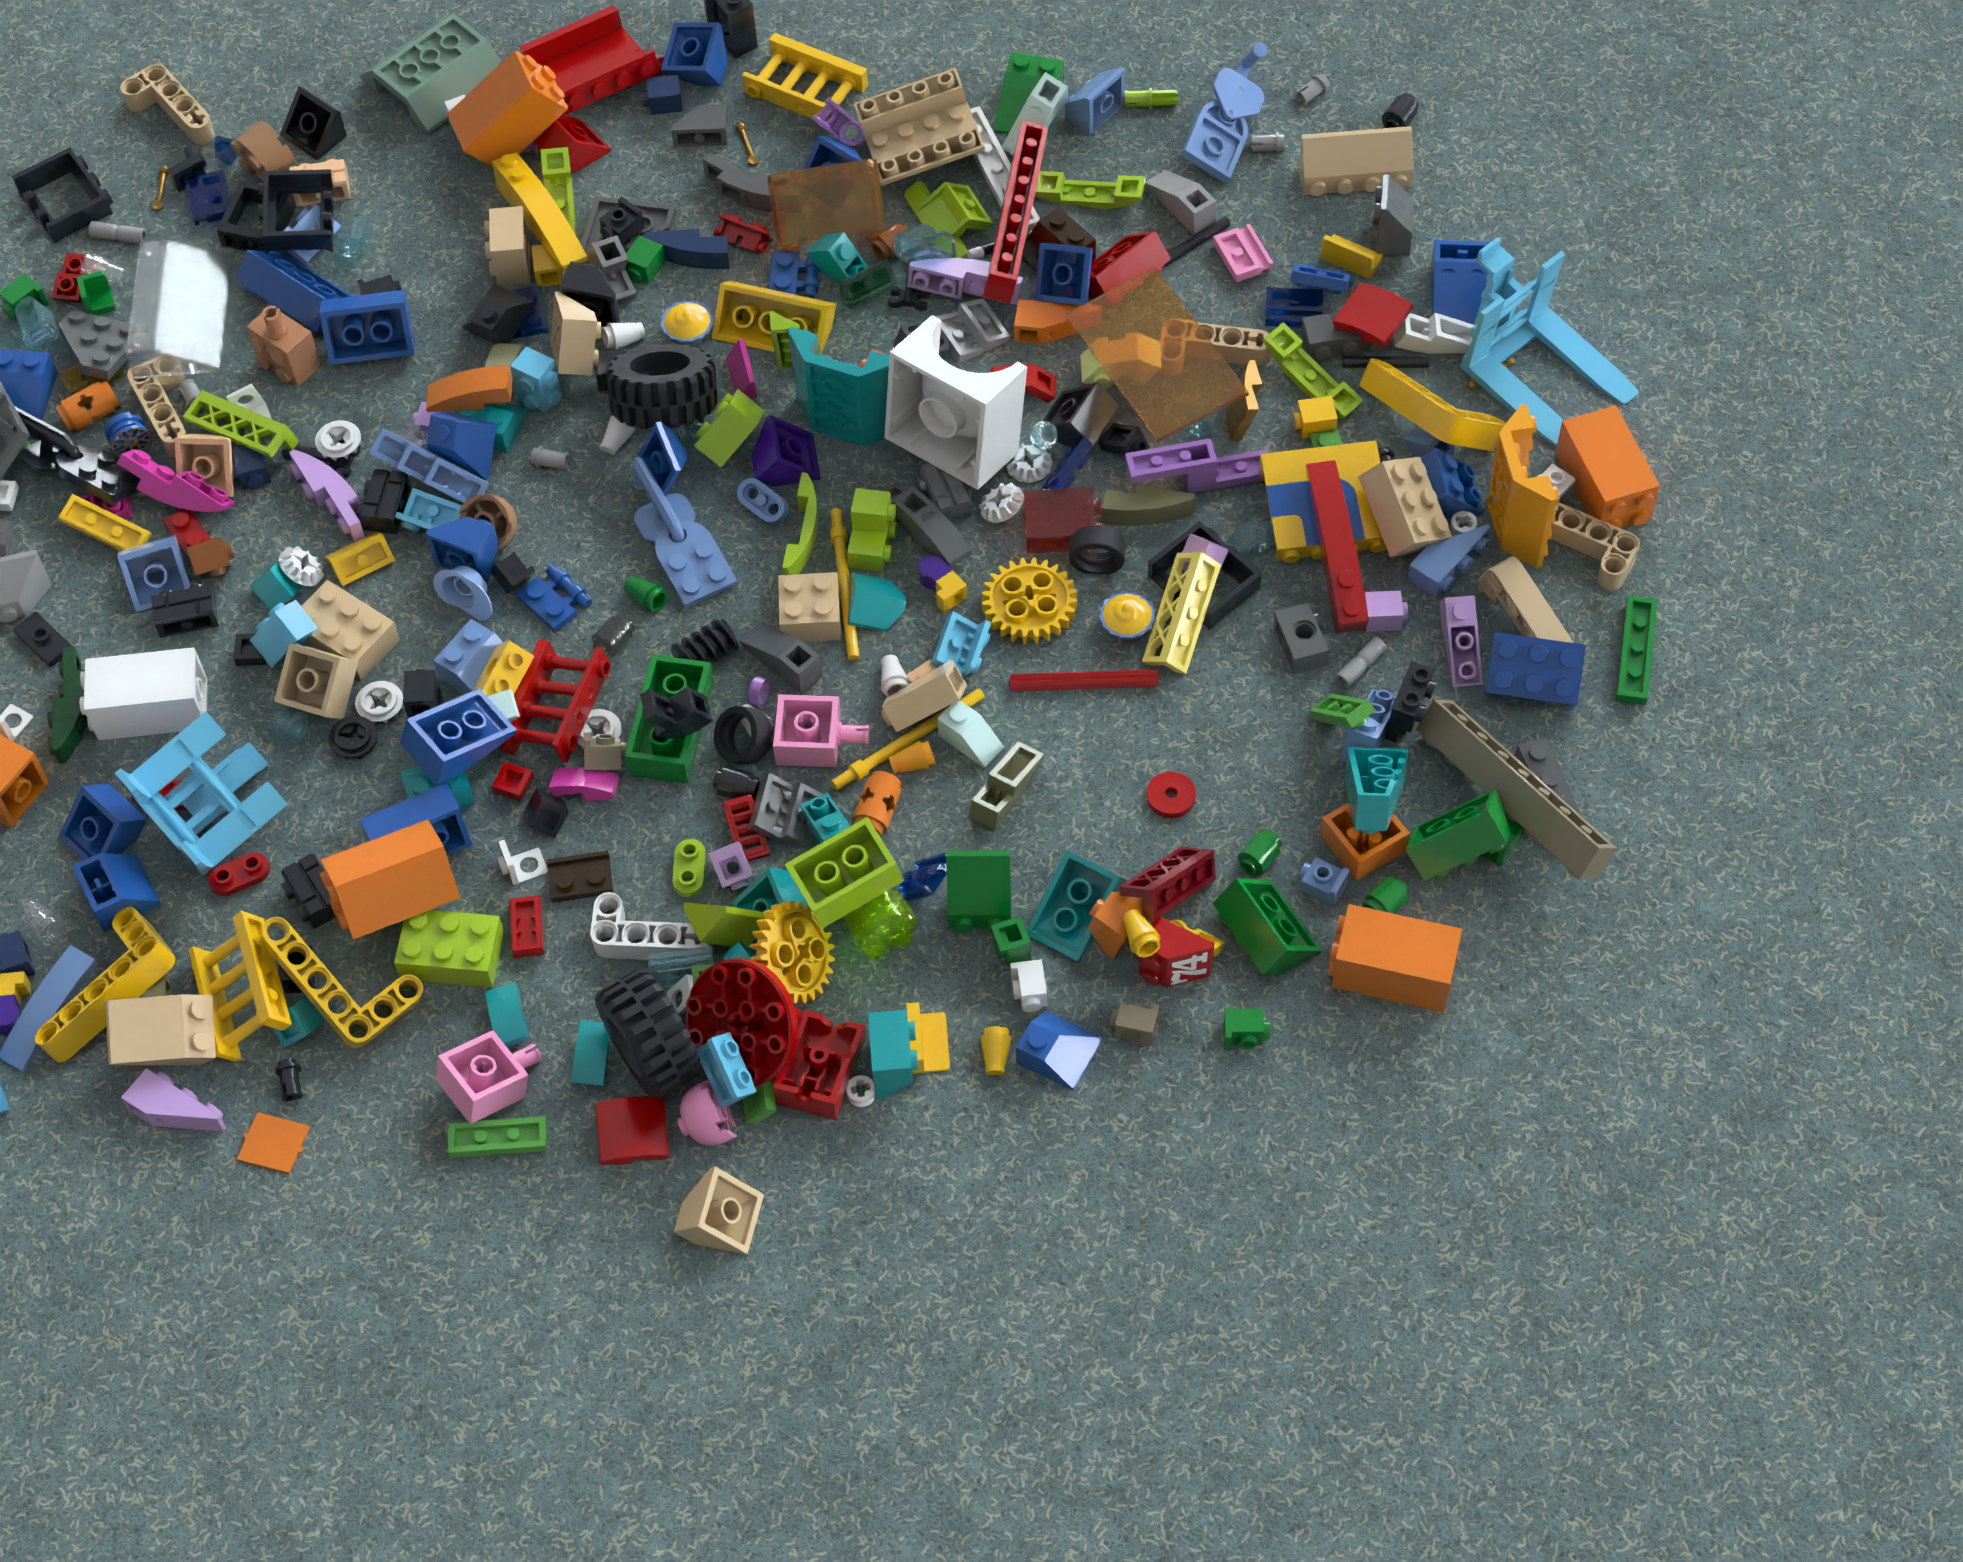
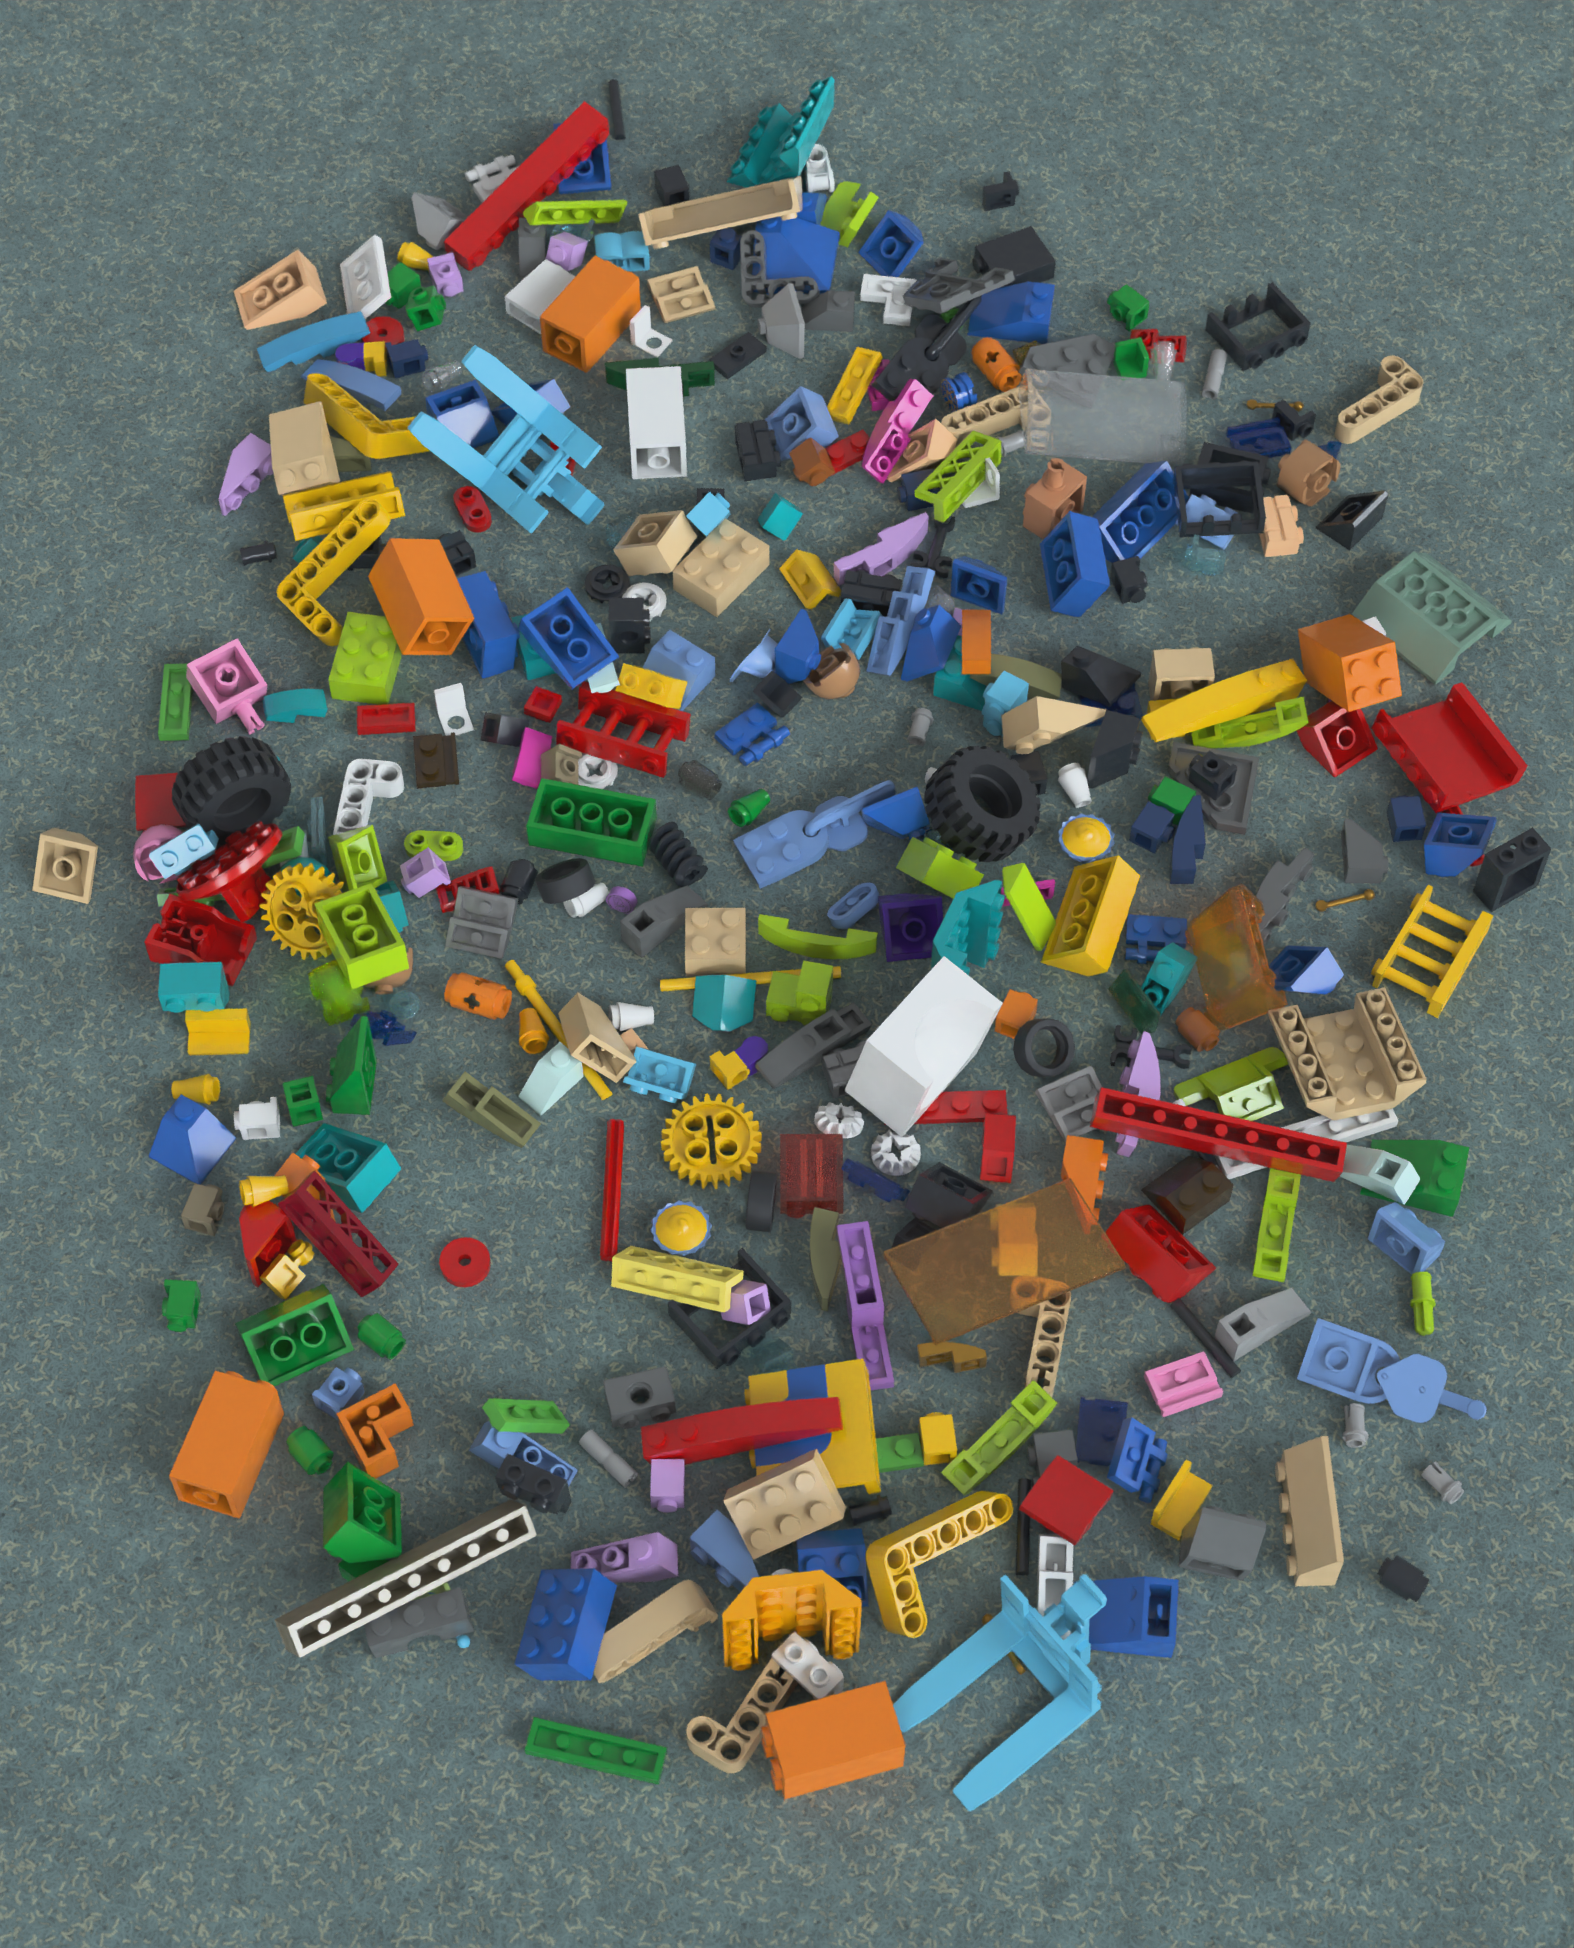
camera: 90 degrees right, 0 degrees up
(35, 323) = (1095, 318): clear light blue piece -> none
(273, 1143) = (204, 548): orange piece -> none
(290, 563) = (792, 521): white gear -> none
(338, 430) = (940, 544): white gear -> none
(380, 405) = (978, 584): none -> blue slope
(612, 261) = (1156, 763): flat silver brick -> none
(673, 275) = (1152, 827): none -> dark blue brick
(677, 715) = (571, 806): black brick -> none
(752, 235) = (1216, 882): red hinge -> none
(811, 731) = (564, 939): bright pink brick -> none
(823, 818) = (453, 953): teal slope -> none
(837, 122) = (1357, 975): medium lavender piece -> none
(924, 243) = (1169, 1046): clear light blue brick -> none
(1049, 435) = (909, 1157): clear light blue plate -> none
(1063, 273) = (1131, 1179): blue slope -> none
(1374, 785) = (418, 1430): teal wedge -> none

